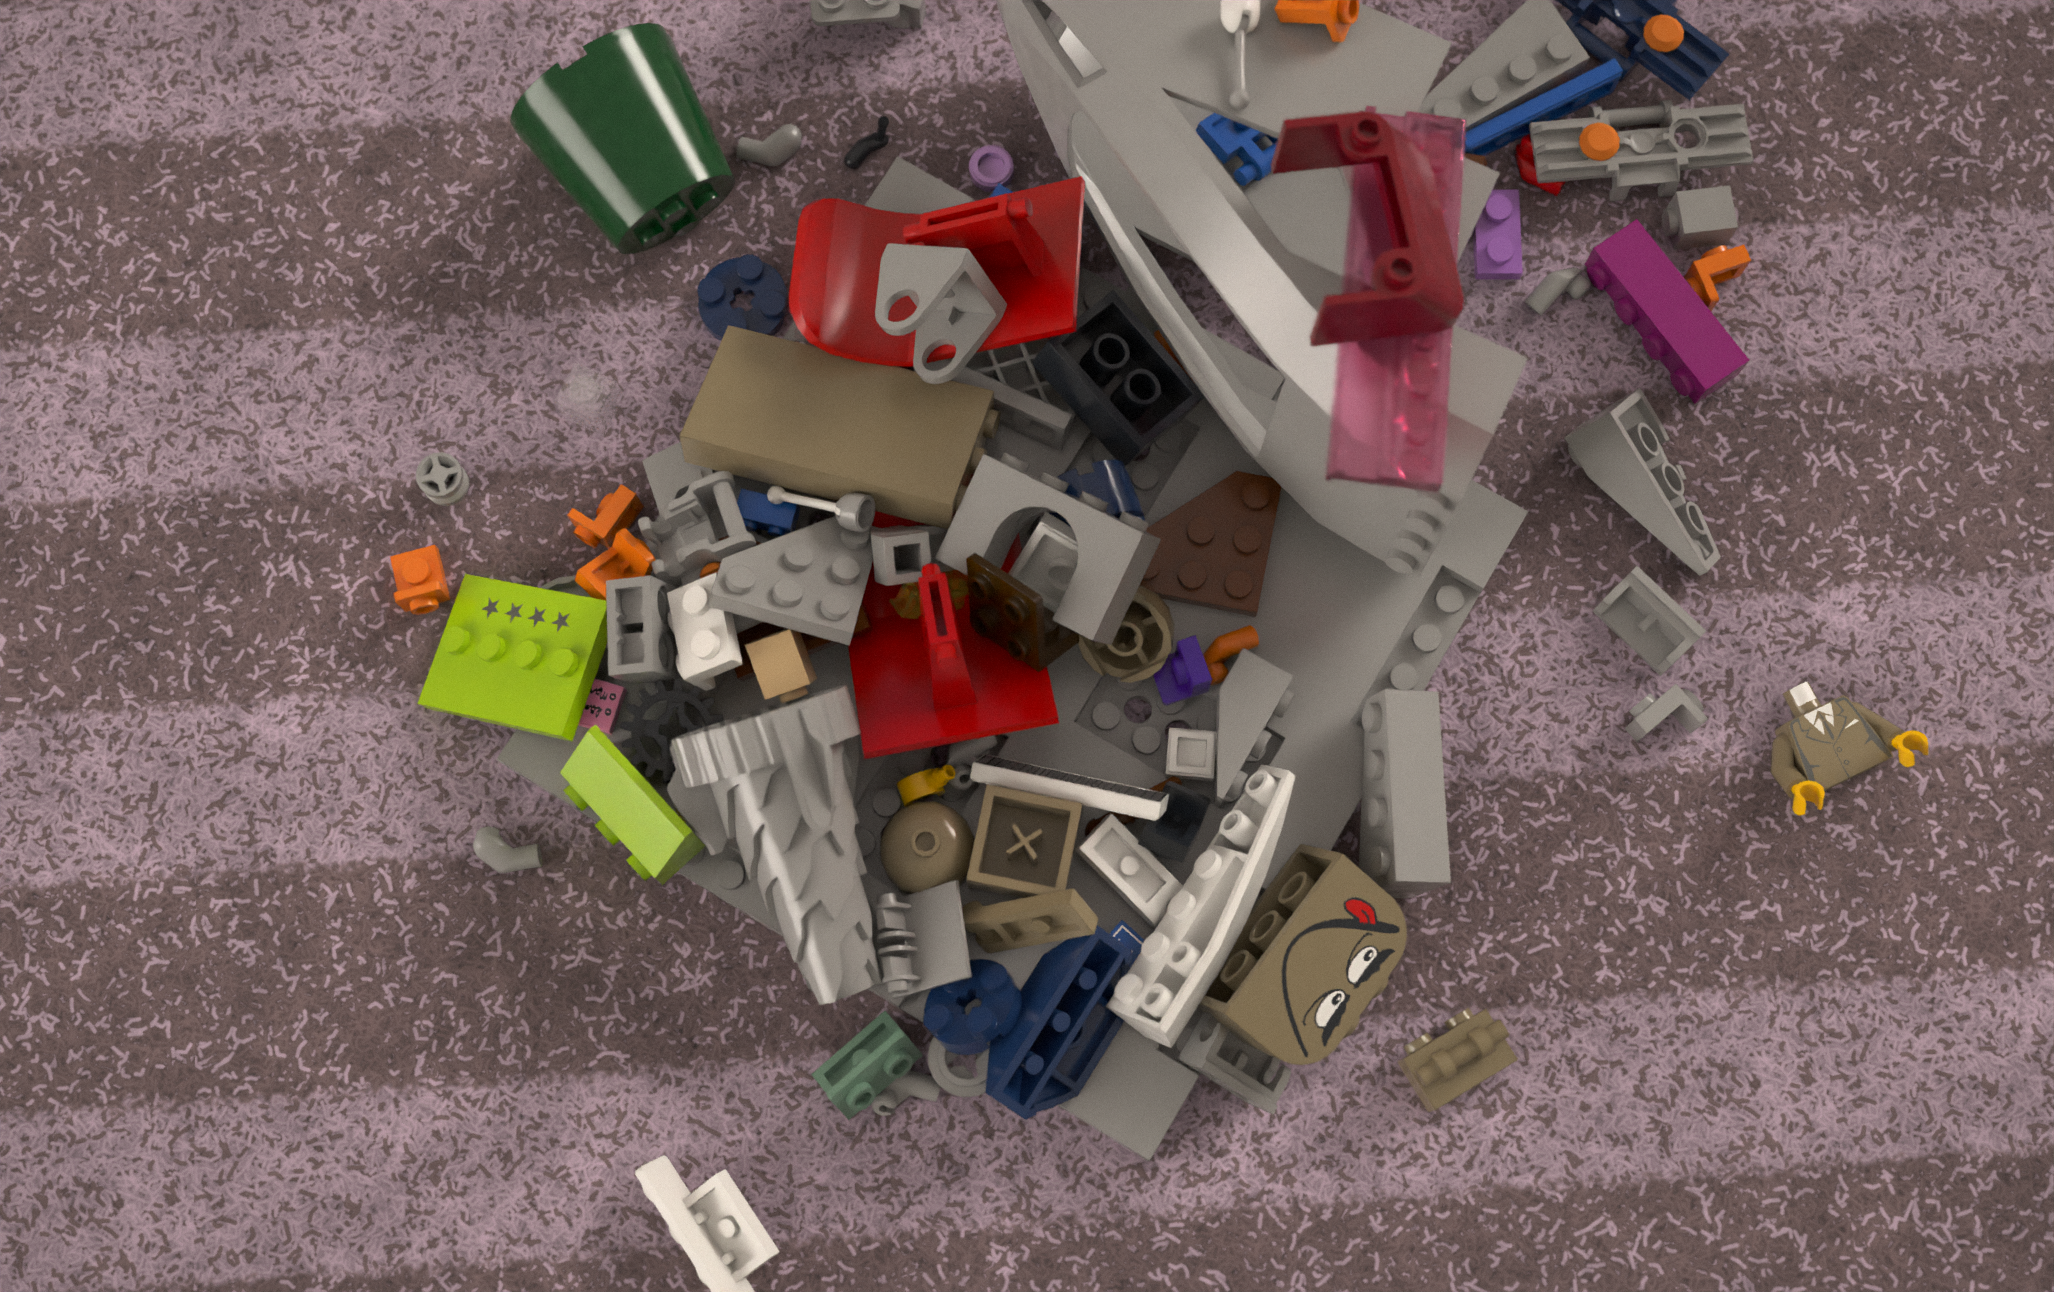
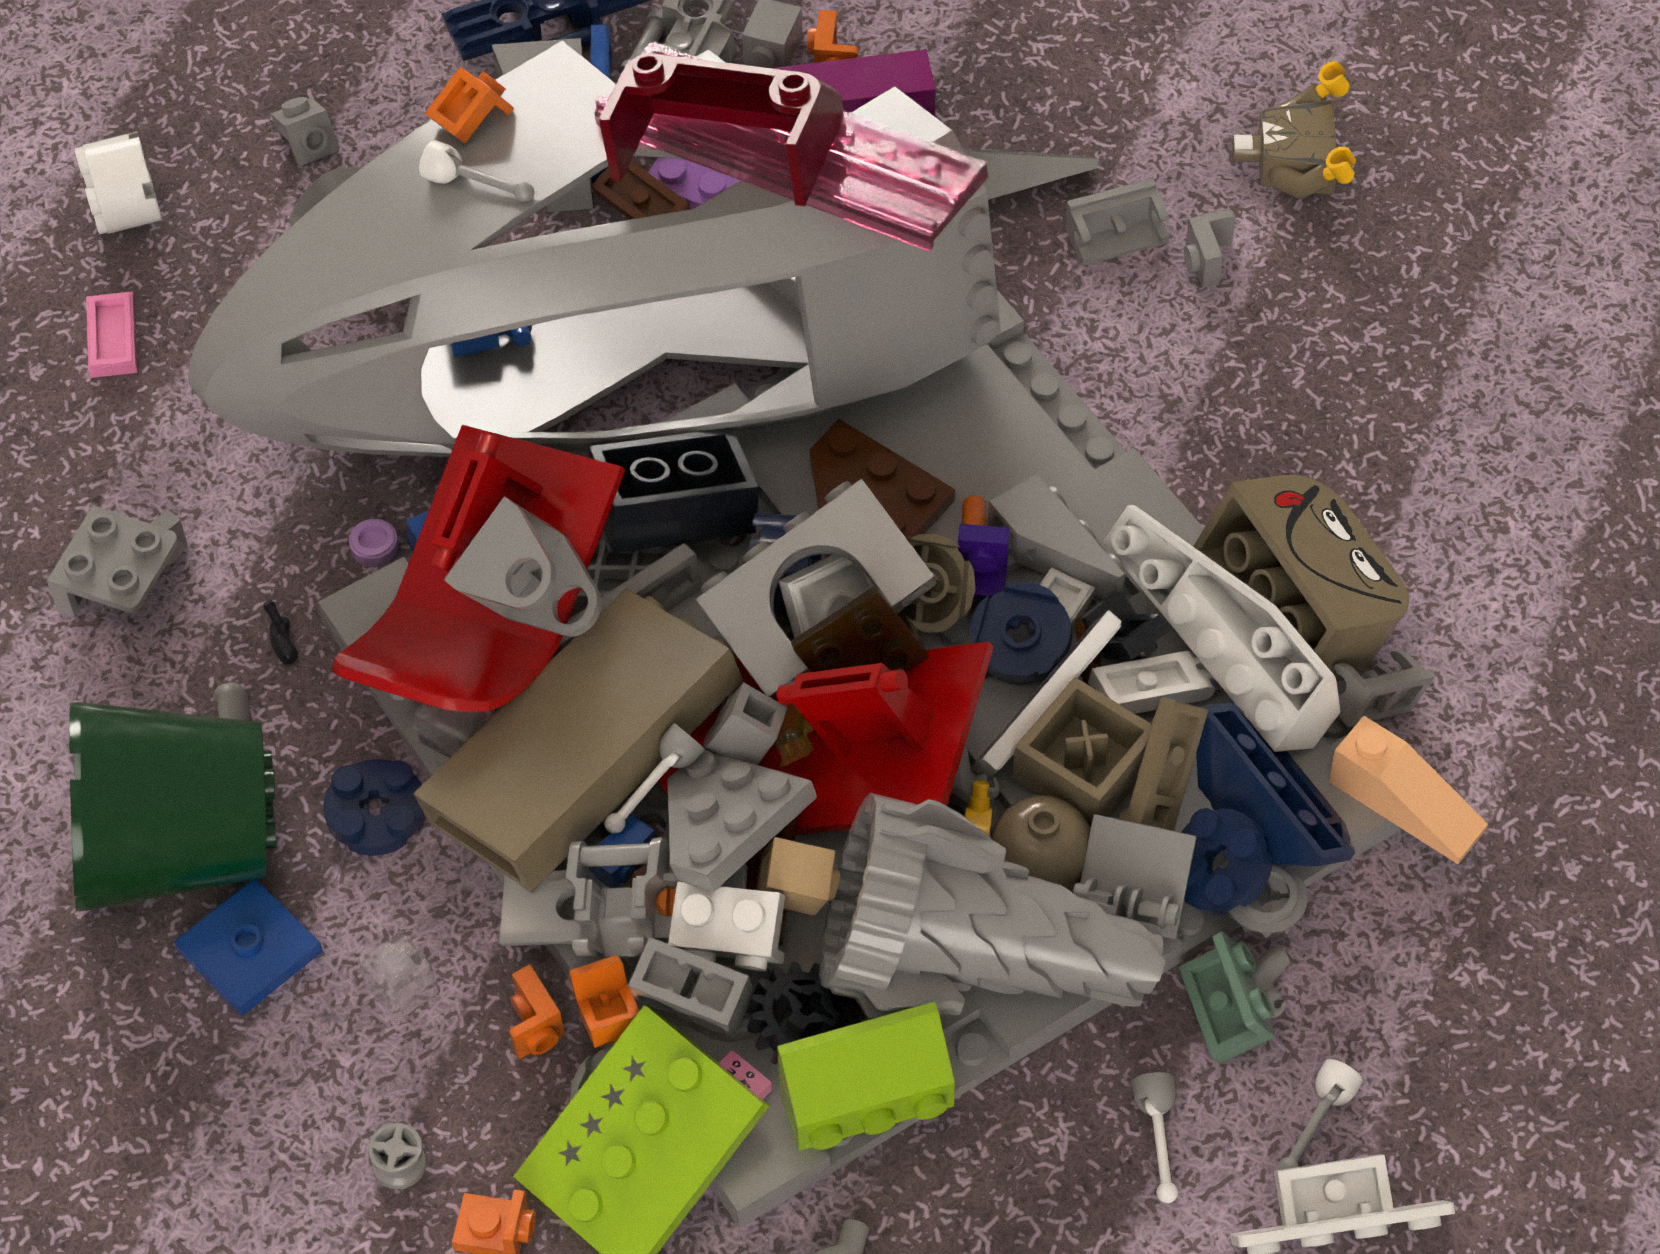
camera: 65 degrees left, 20 degrees down
(575, 275) = (248, 946): none -> blue plate
(754, 1043) = (1155, 1096): none -> hinge
(831, 1188) = (1335, 1086): none -> hinge
(1107, 721) = (1046, 619): none -> dark blue plate
(1127, 1140) = (1404, 789): none -> light nougat slope
(1403, 794) = (1182, 441): light grey wedge -> none
(1457, 1059) = (1446, 520): dark tan brick -> none

